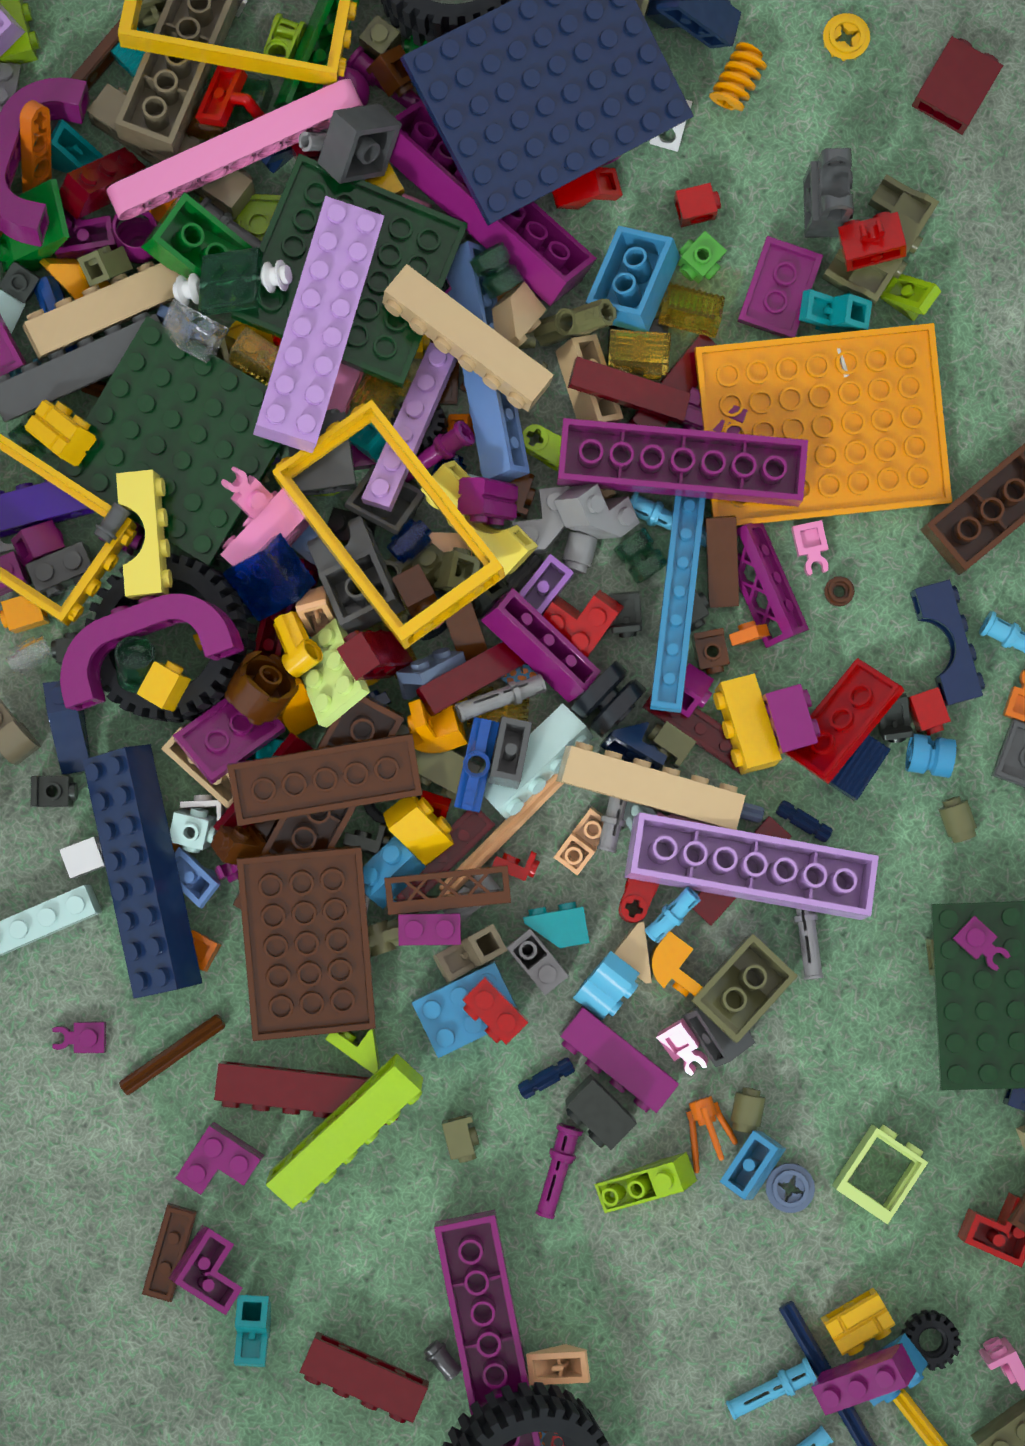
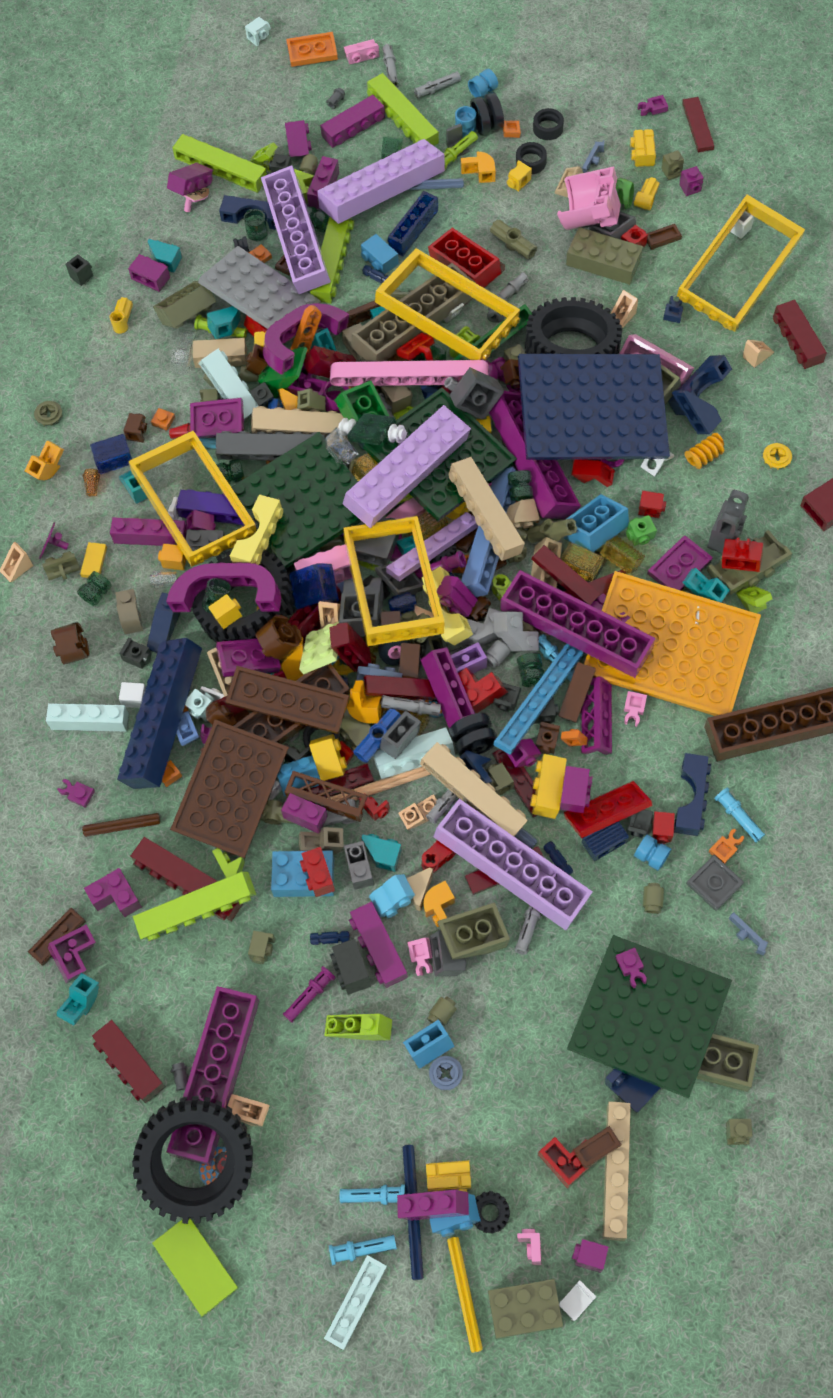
camera: 30 degrees right, 20 degrees down
(60, 432) = (242, 467): yellow brick -> none
(111, 523) = (243, 519): dark grey pin -> none
(248, 493) = (326, 537): bright pink plate -> none
(300, 651) = (310, 626): yellow piece -> none
(672, 914) = (451, 869): medium azure pin -> none
(704, 1113) = (414, 1001): orange plant -> none
(848, 589) = (639, 734): reddish brown plate -> none
(888, 1209) = (486, 1097): yellowish green window -> none

